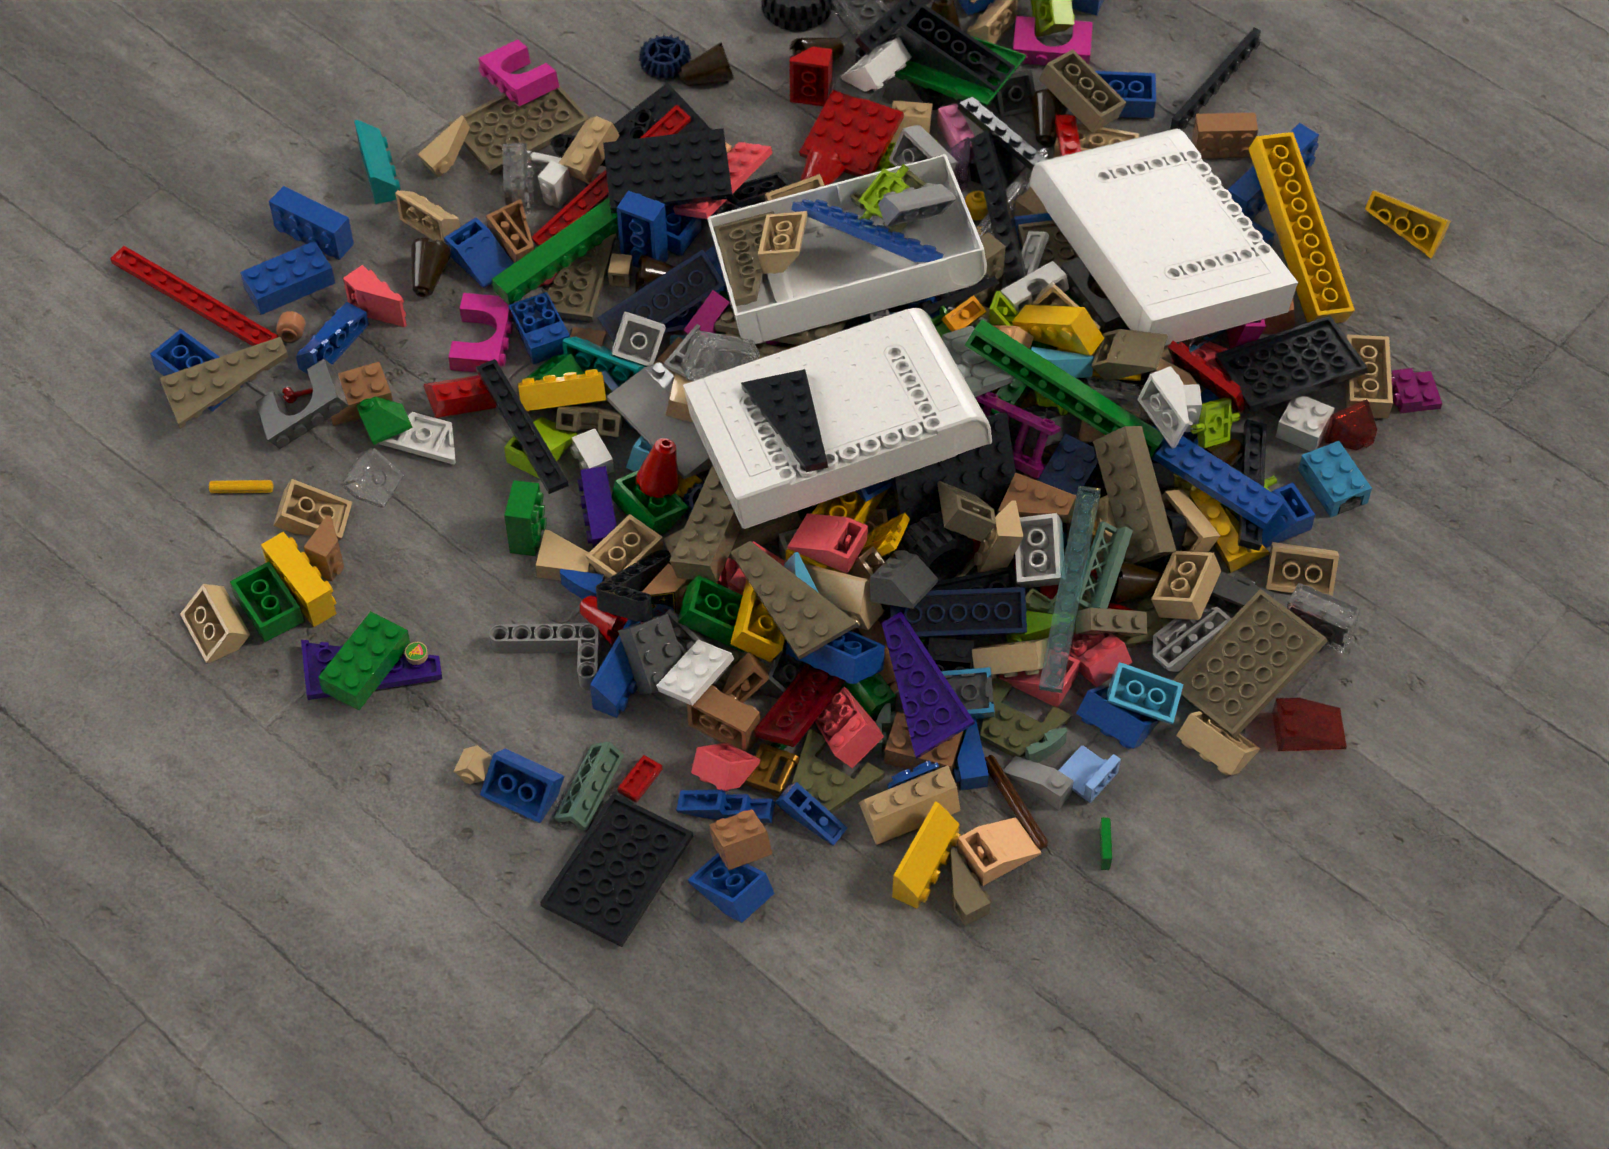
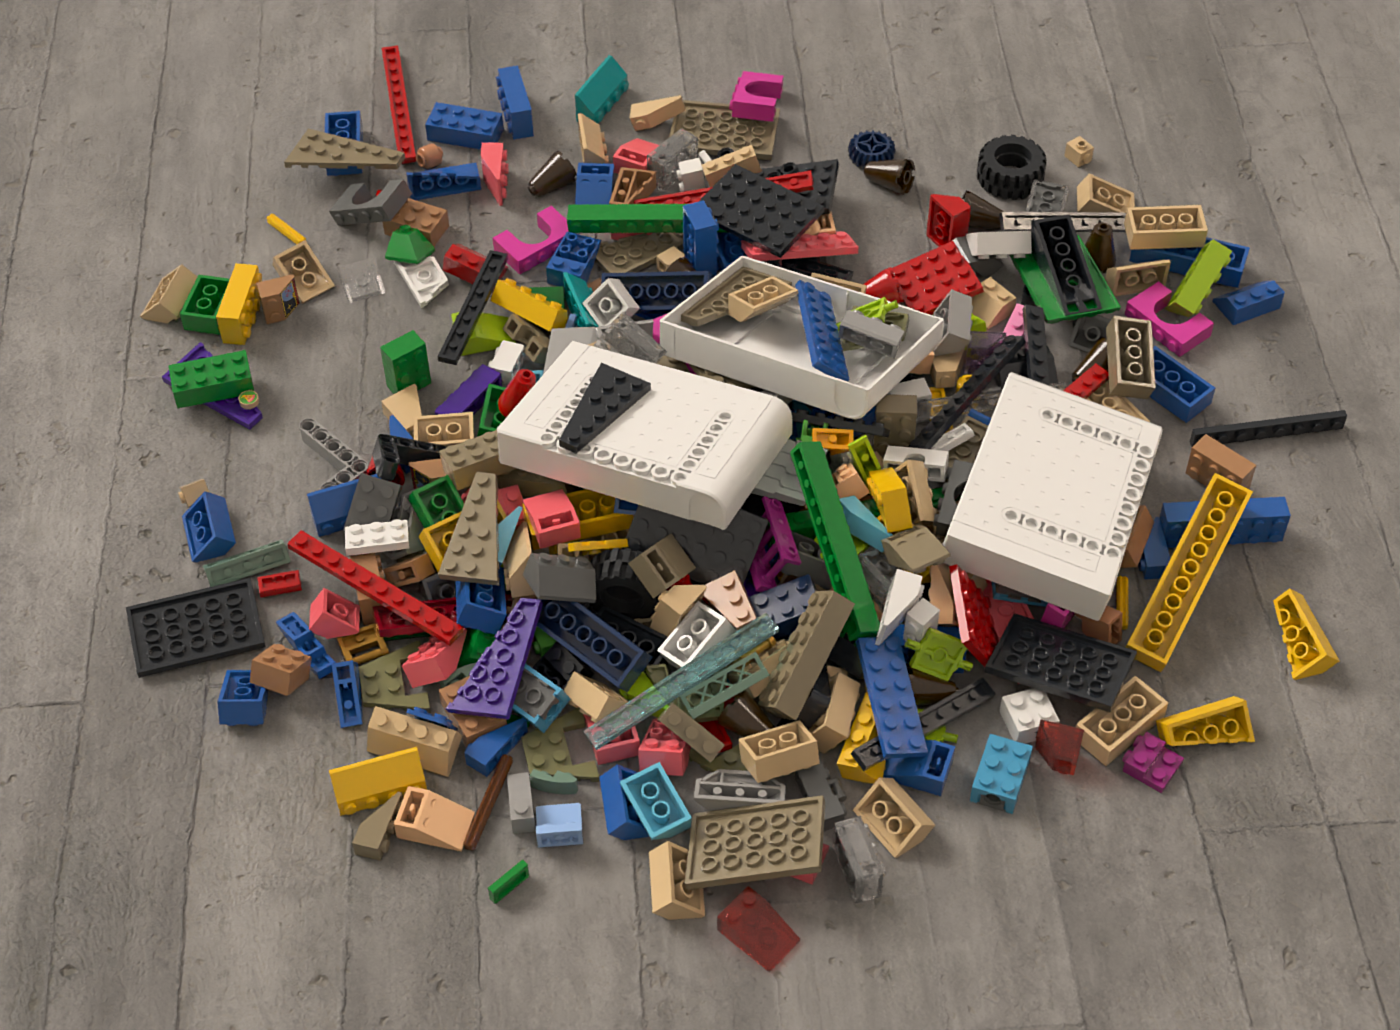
camera: 45 degrees right, 5 degrees down
(479, 196) = (633, 155): none -> coral slope
(746, 711) = (375, 588): none -> red plate
(1421, 333) = (1211, 724): none -> yellow wedge

